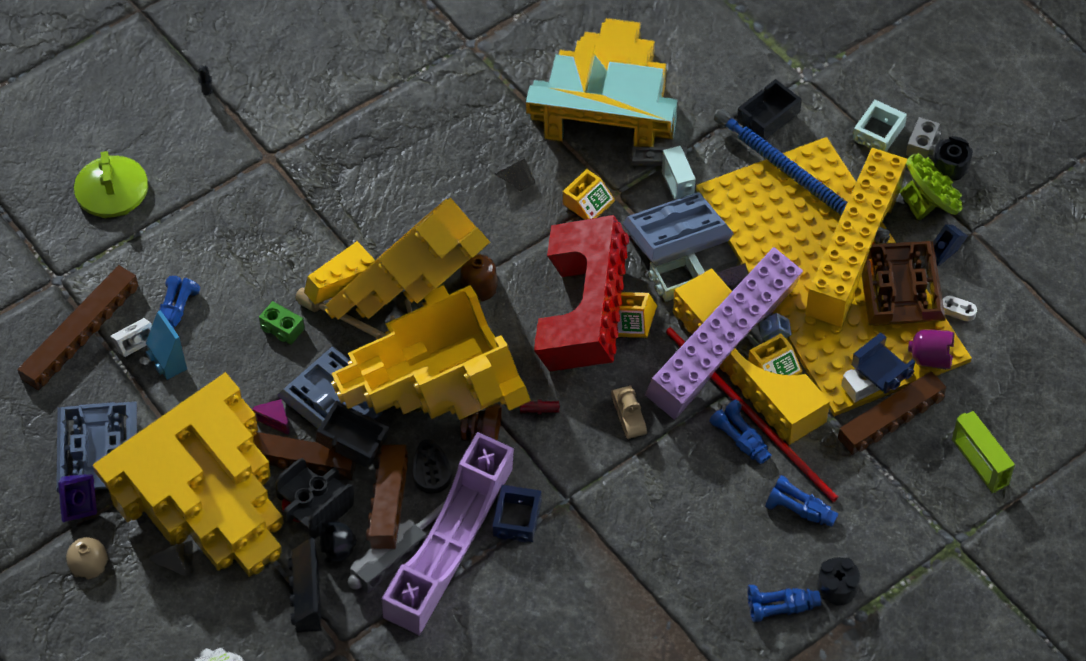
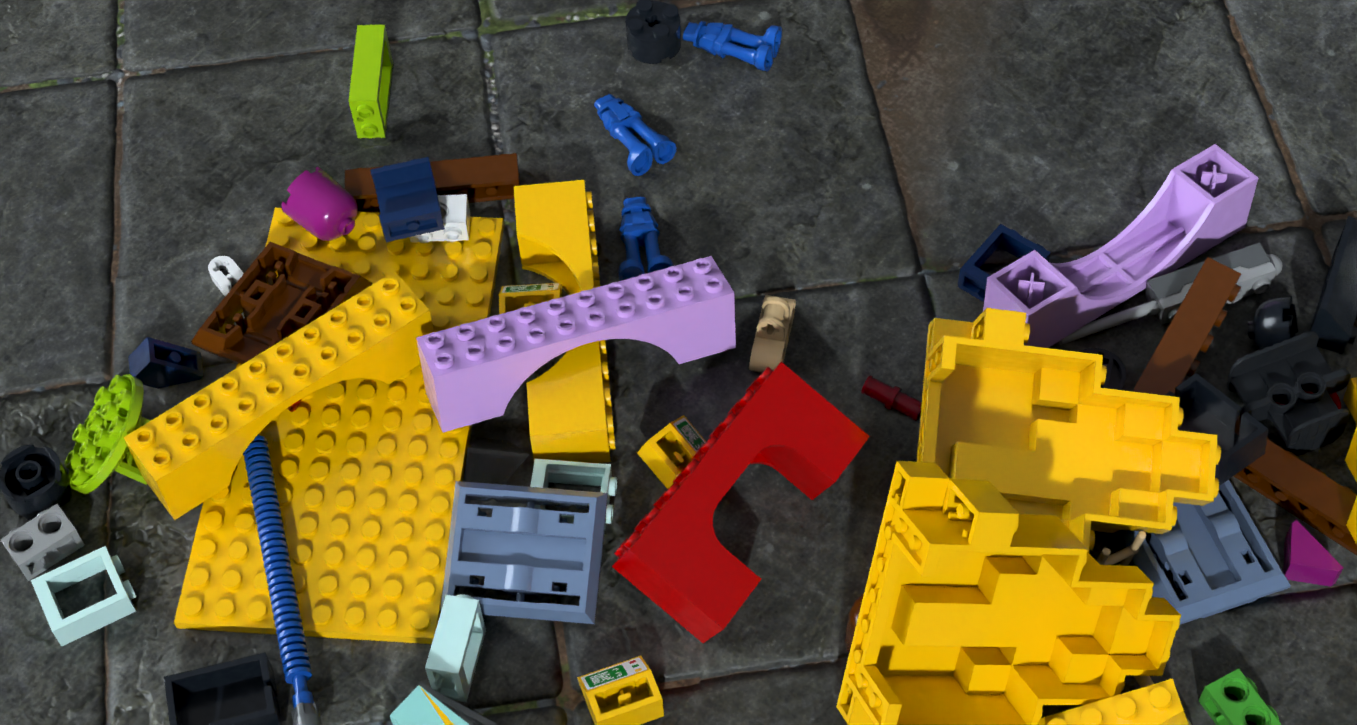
camera: 150 degrees left, 0 degrees up
(764, 427) = (610, 276): red piece -> none

